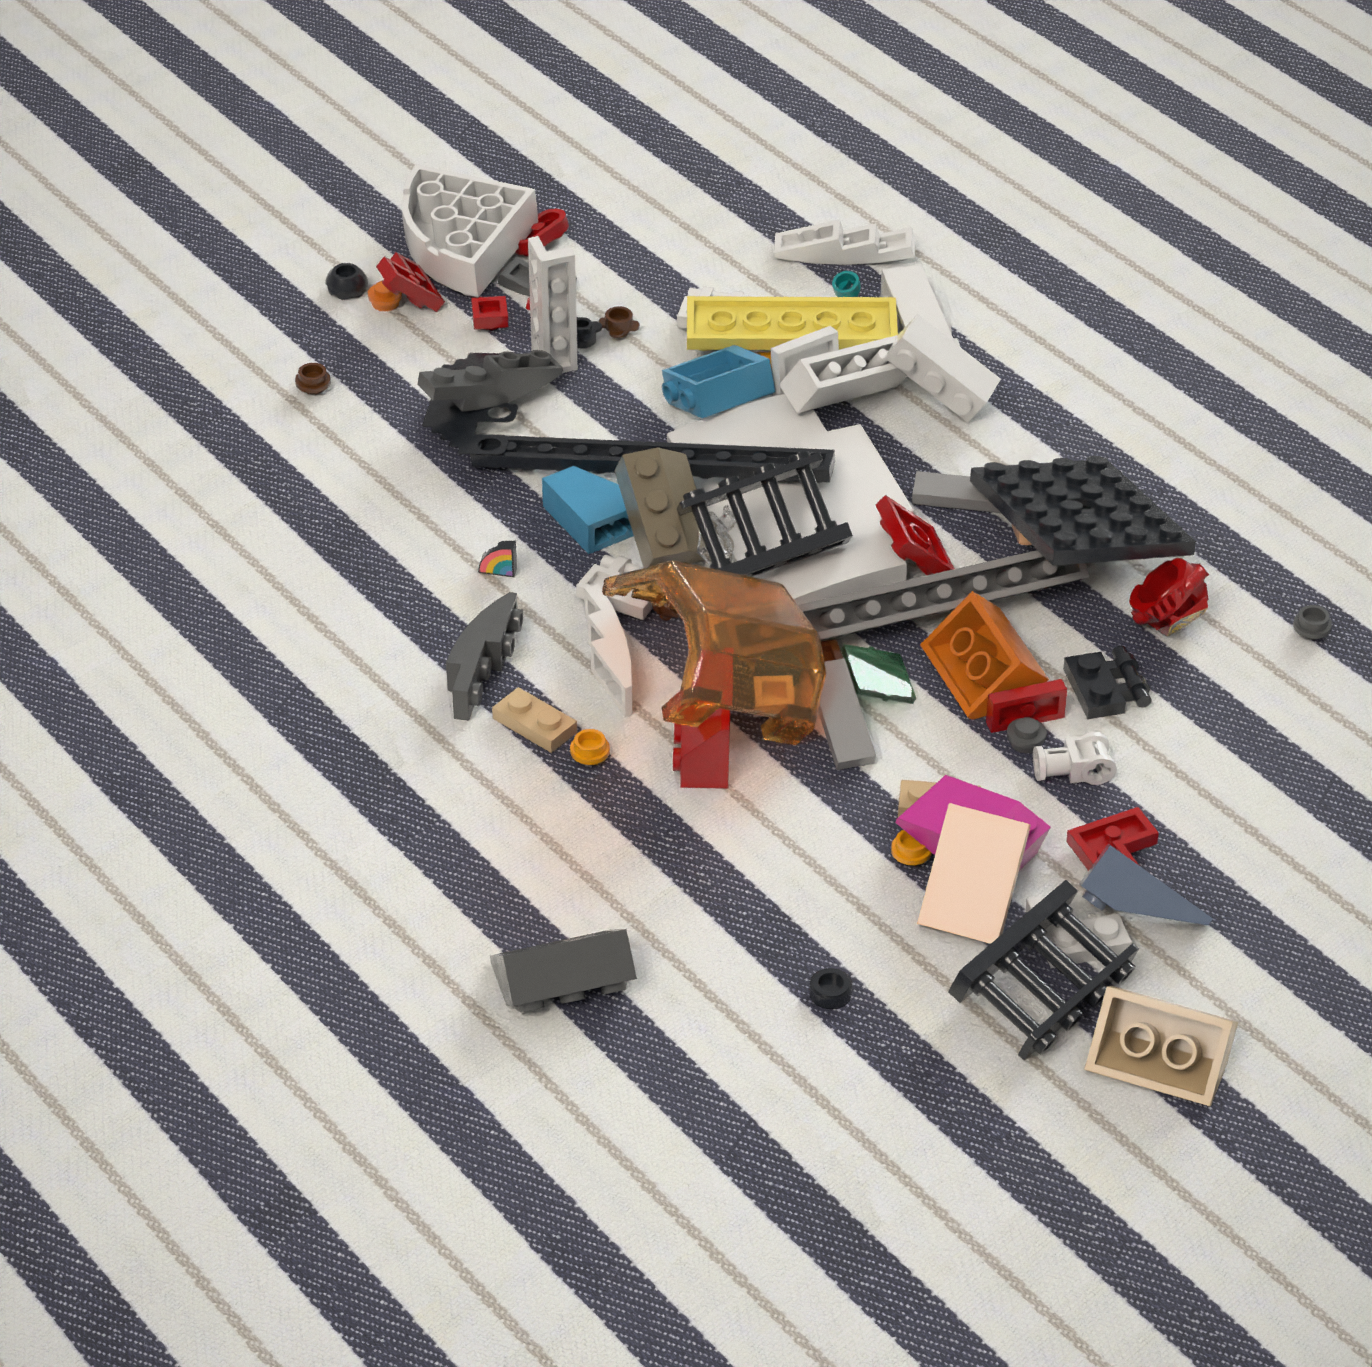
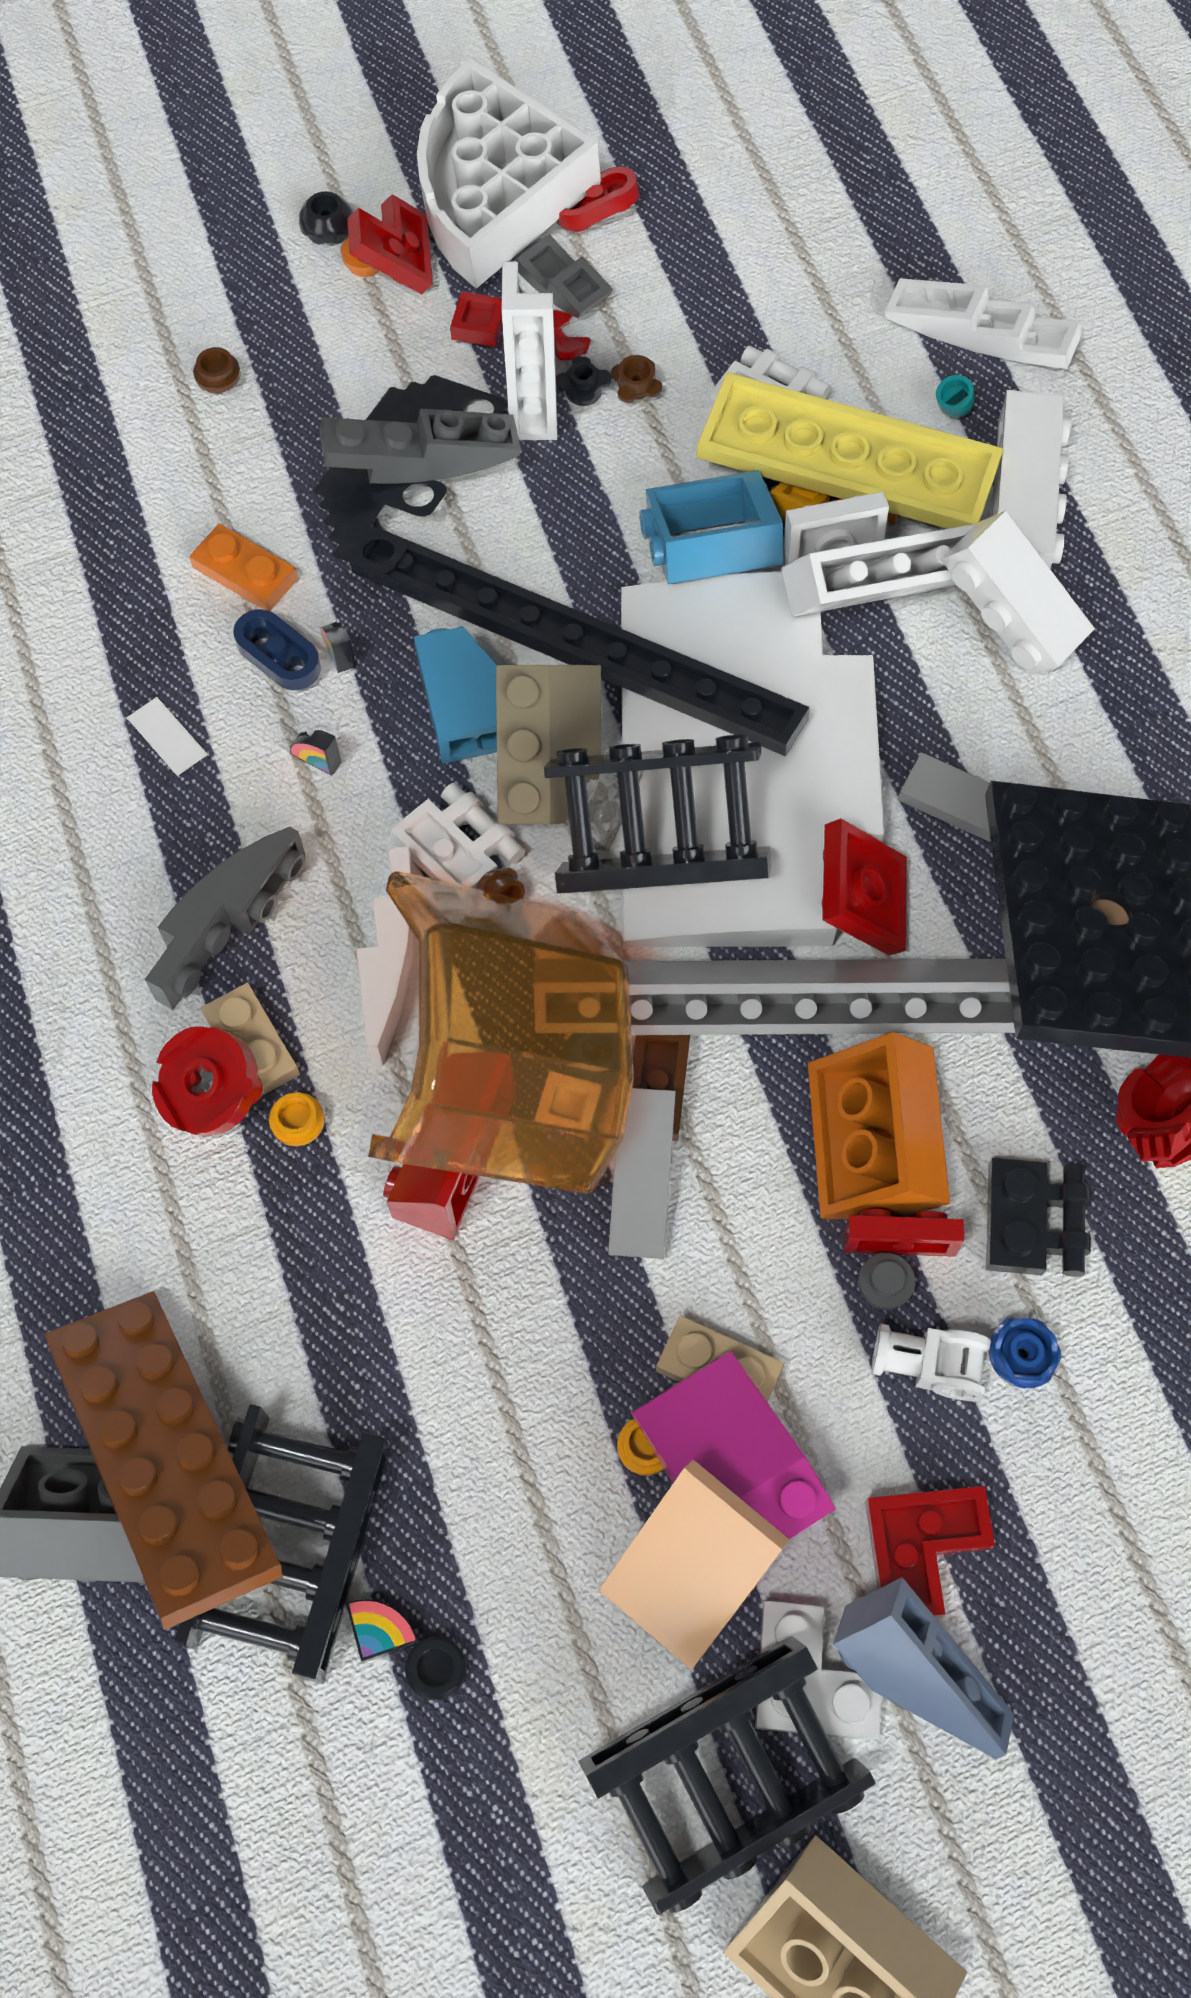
camera: 20 degrees right, 25 degrees up
(384, 582) = (167, 736): none -> white sticker
(391, 480) = (243, 567): none -> orange plate
(442, 514) = (280, 652): none -> dark blue plate
(484, 503) = (339, 646): none -> black tile
(533, 752) = (233, 1085): none -> red plate
(600, 904) = (162, 1460): none -> dark orange plate
(733, 929) = (342, 1525): none -> black fence
(783, 978) = (379, 1629): none -> tile
(878, 674) = (725, 1108): clear green piece -> none
(1131, 743) = (1041, 1351): none -> blue plate

